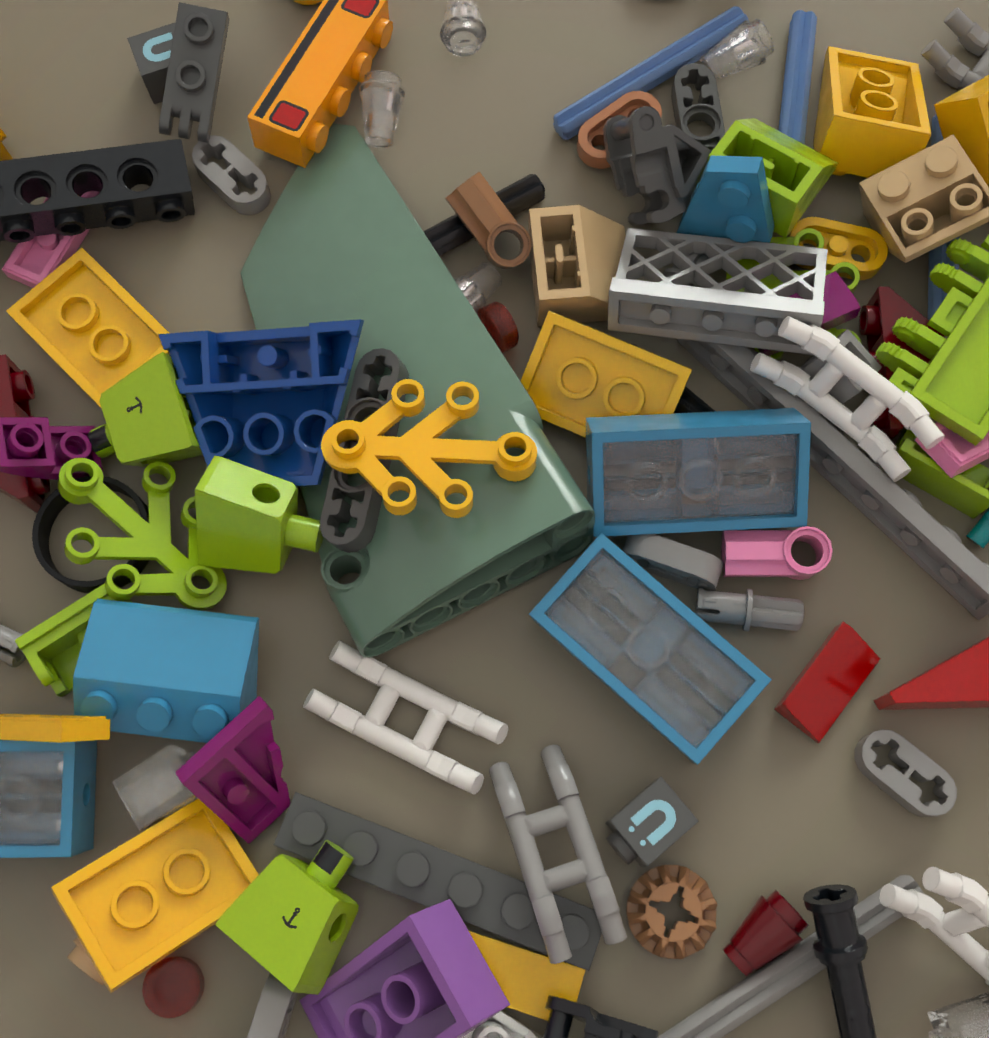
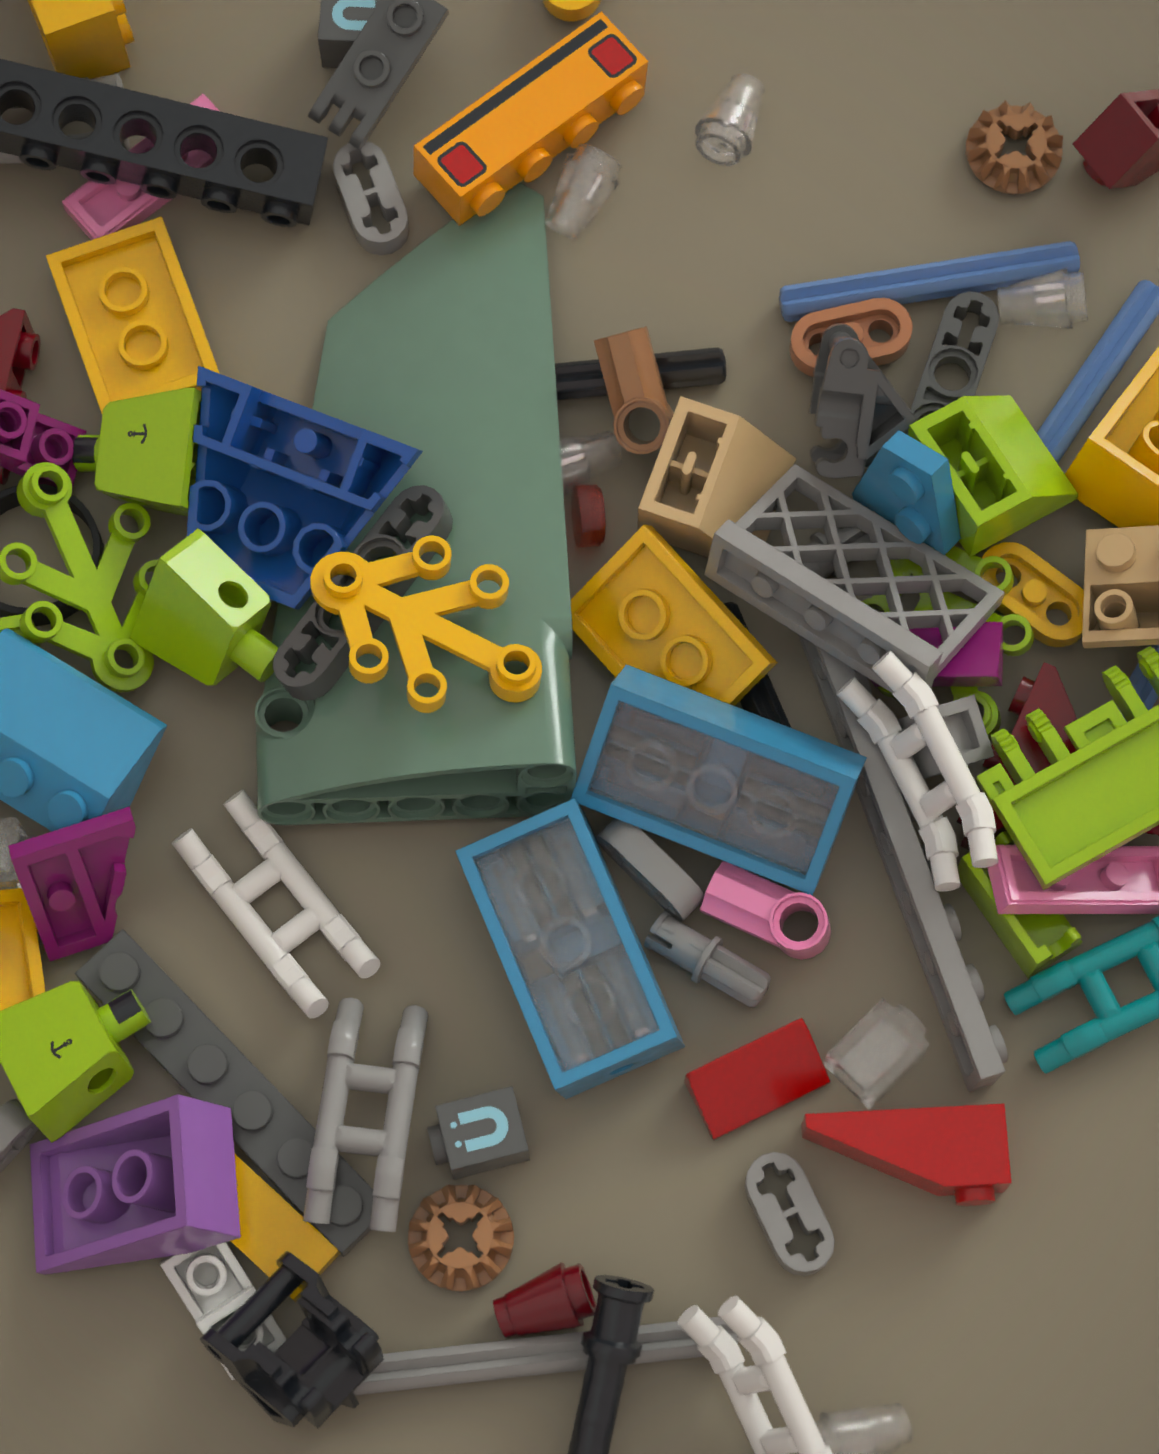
camera: 25 degrees right, 0 degrees up
(908, 621) = (878, 1052): none -> clear brick

